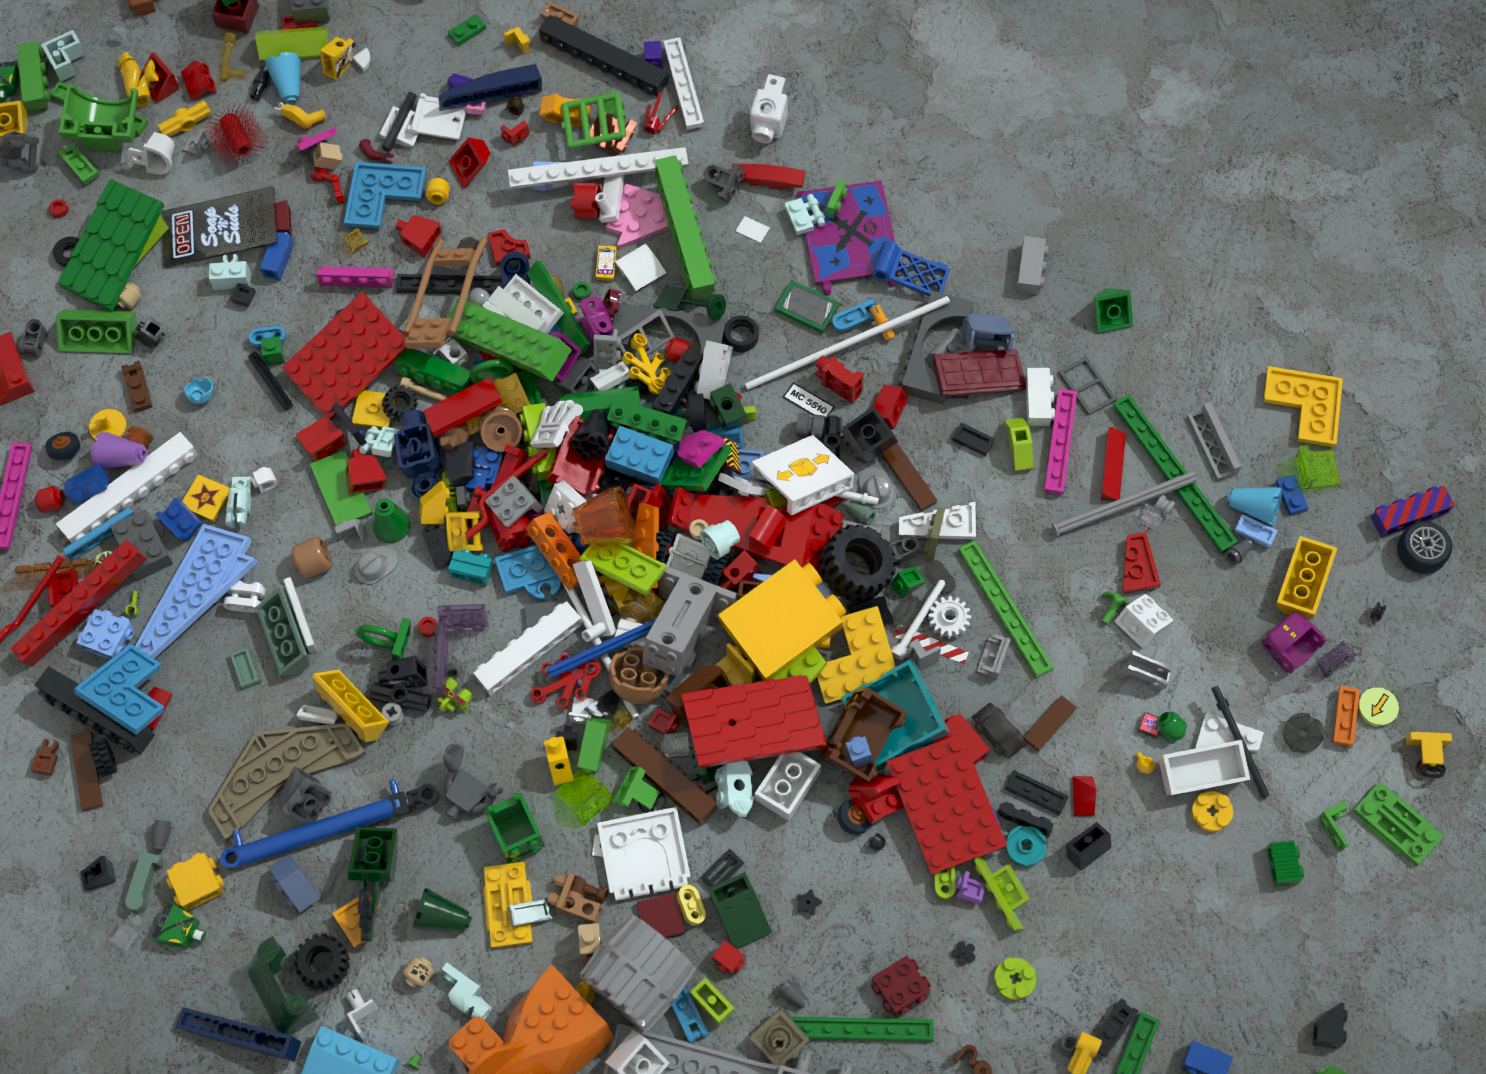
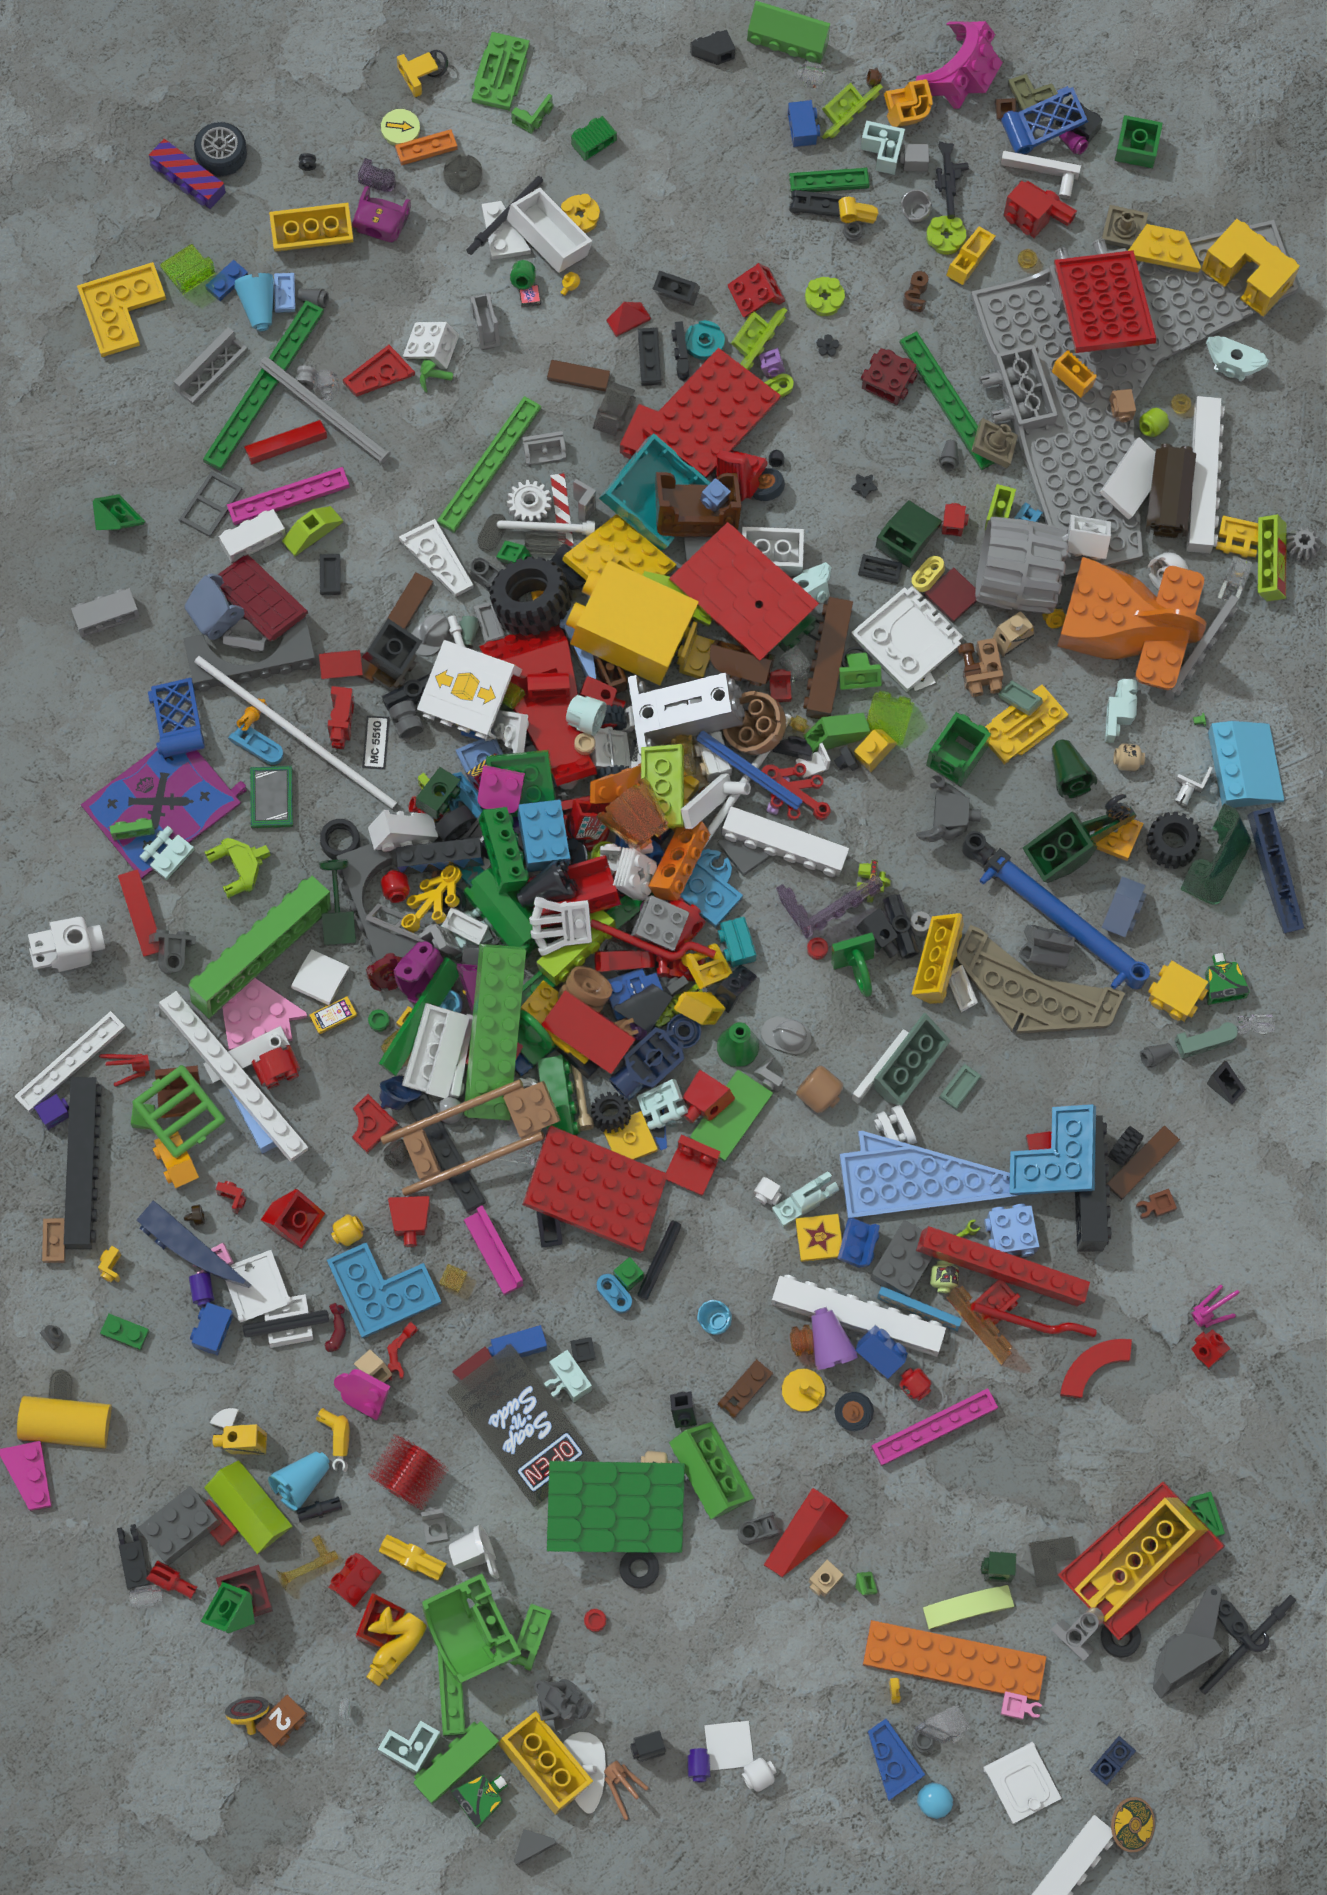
camera: 125 degrees left, 5 degrees up
(349, 424) = (668, 1134): black tile -> none
(428, 77) = (211, 1328): none -> blue brick
(752, 229) = (209, 899): white sticker -> none
(765, 261) = (245, 861): none -> lime connector
(933, 534) = (463, 545): olive plate -> none
(1052, 920) = (755, 289): none -> red bracket

